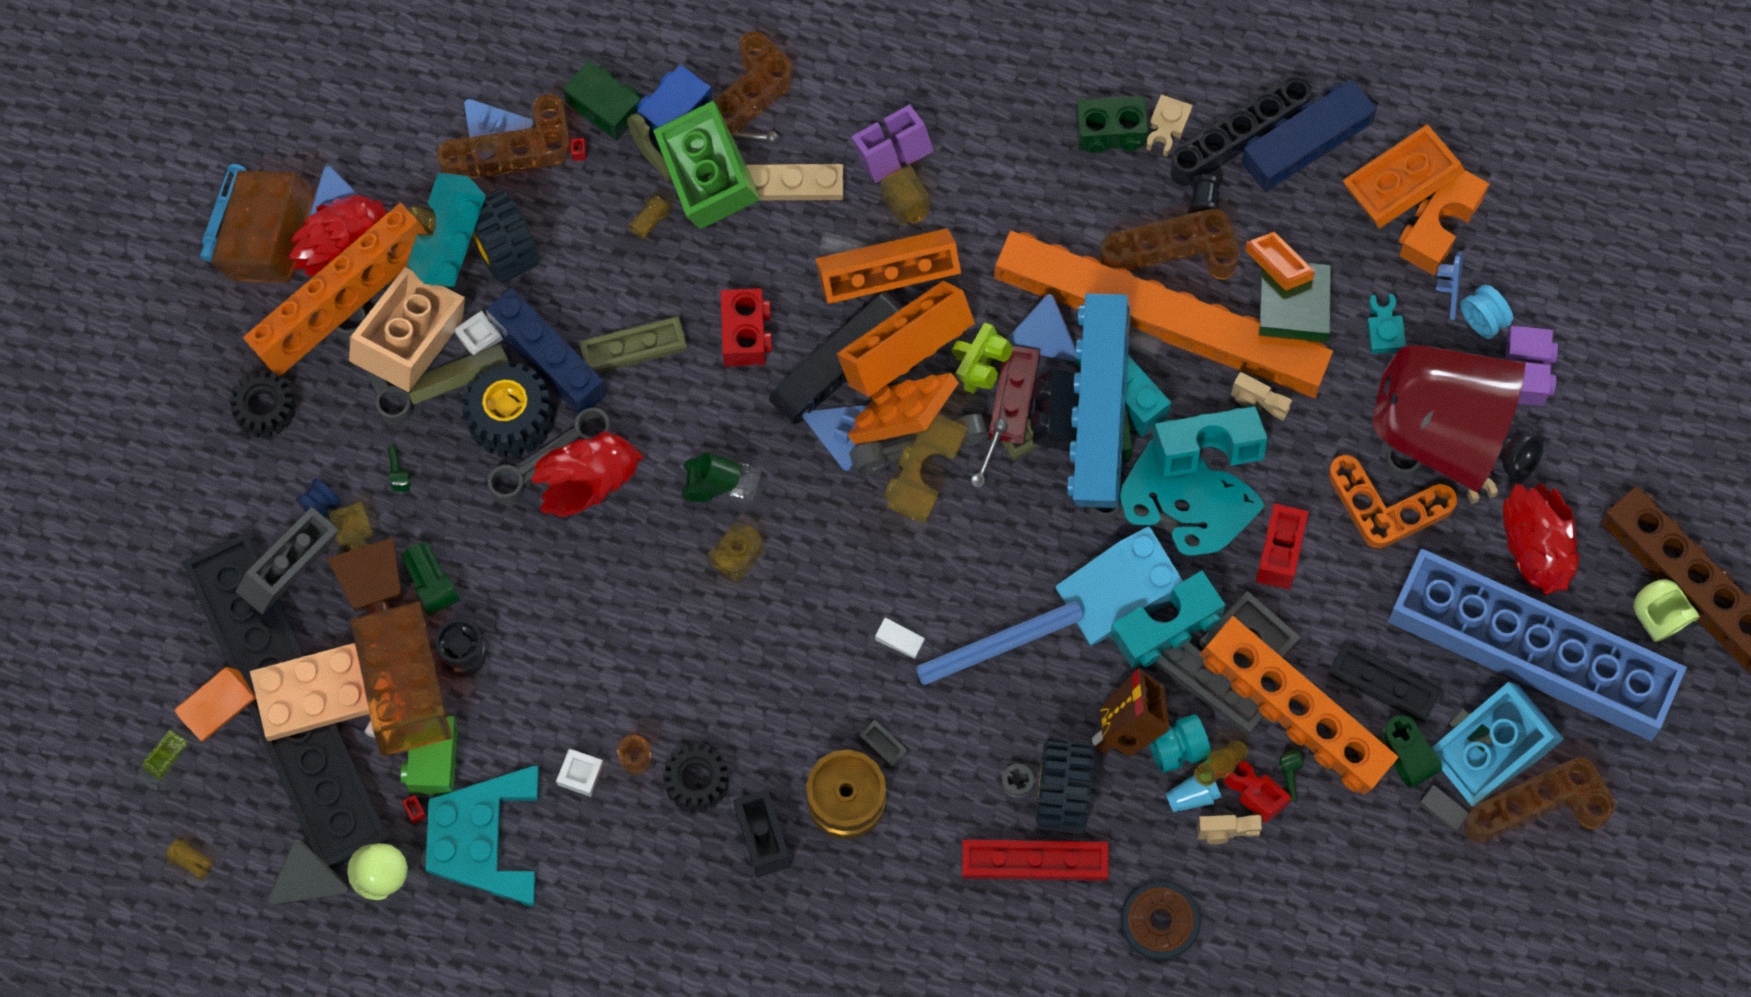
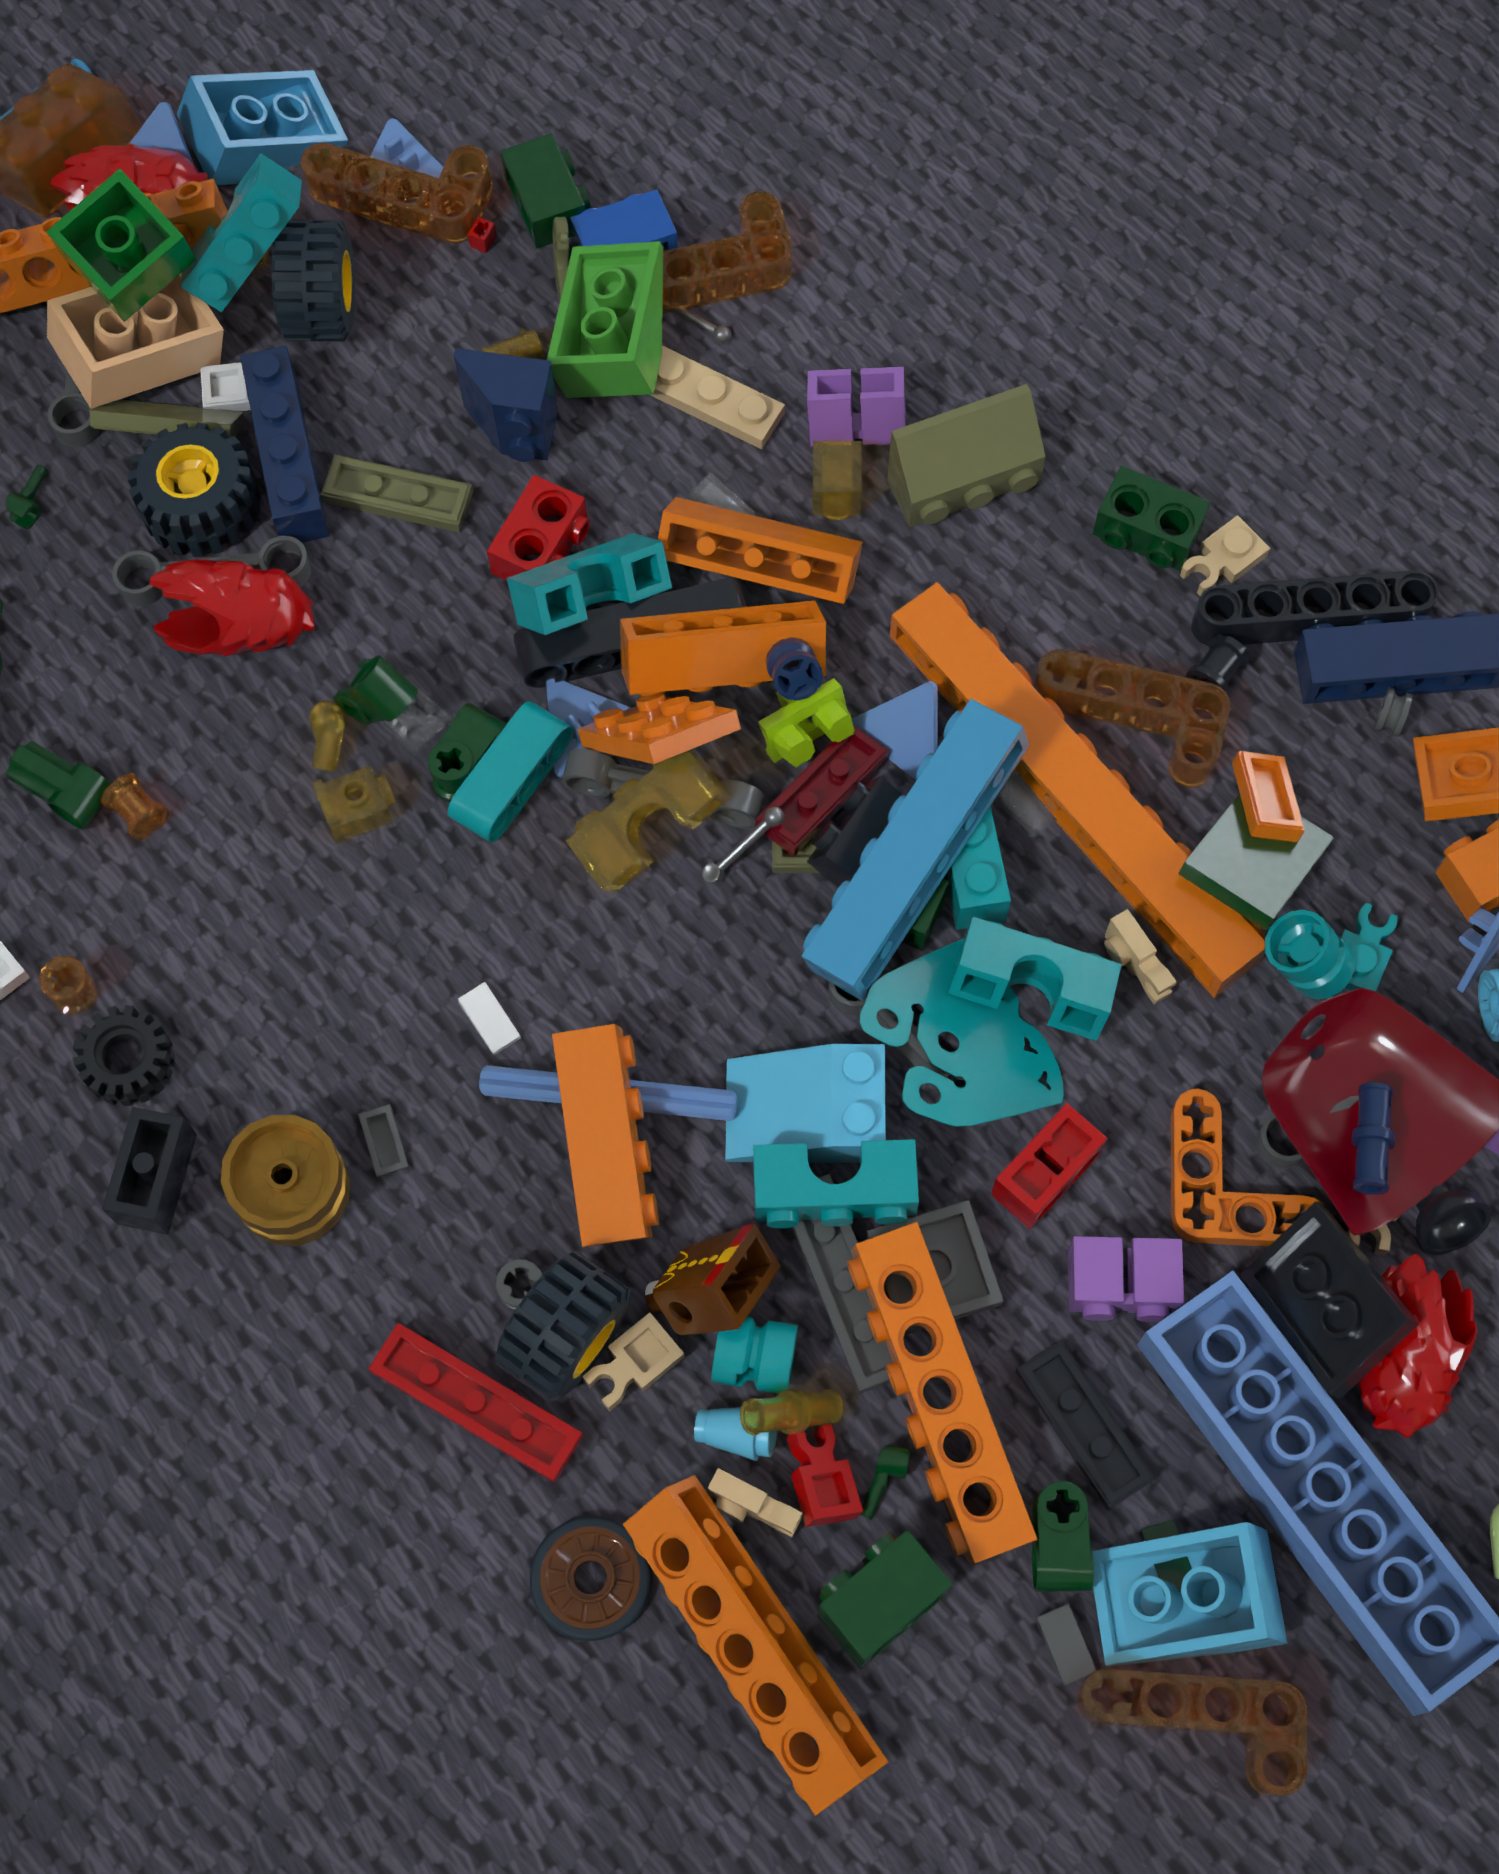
camera: 30 degrees right, 0 degrees up
(382, 277) = (121, 245): none -> green brick
(385, 148) = (255, 113): none -> dark azure slope
(554, 638) = (68, 789): none -> dark green piece
(601, 626) = (134, 806): none -> clear orange bush
(674, 252) = (510, 401): none -> dark blue slope
(692, 517) = (328, 729): none -> clear yellow arm
(785, 357) = (560, 590): none -> teal arch
(785, 481) = (462, 748): none -> dark green piece
(820, 482) = (510, 771): none -> teal beam
(959, 329) = (800, 680): none -> dark blue wheel
(980, 143) = (966, 456): none -> olive slope
(1017, 667) = (603, 1135): none -> orange brick
(1113, 784) = (640, 1357): none -> tan plate
(1295, 896) = (779, 1653): none -> orange brick
(1322, 170) = (1393, 711): none -> dark grey bush
(1336, 830) = (883, 1597): none -> dark green brick
(1353, 591) = (1153, 1277): none -> medium lavender piece
(1359, 343) = (1309, 954): none -> teal wheel
(1455, 431) = (1373, 1138): none -> dark blue pin
(1482, 536) = (1328, 1300): none -> black plate

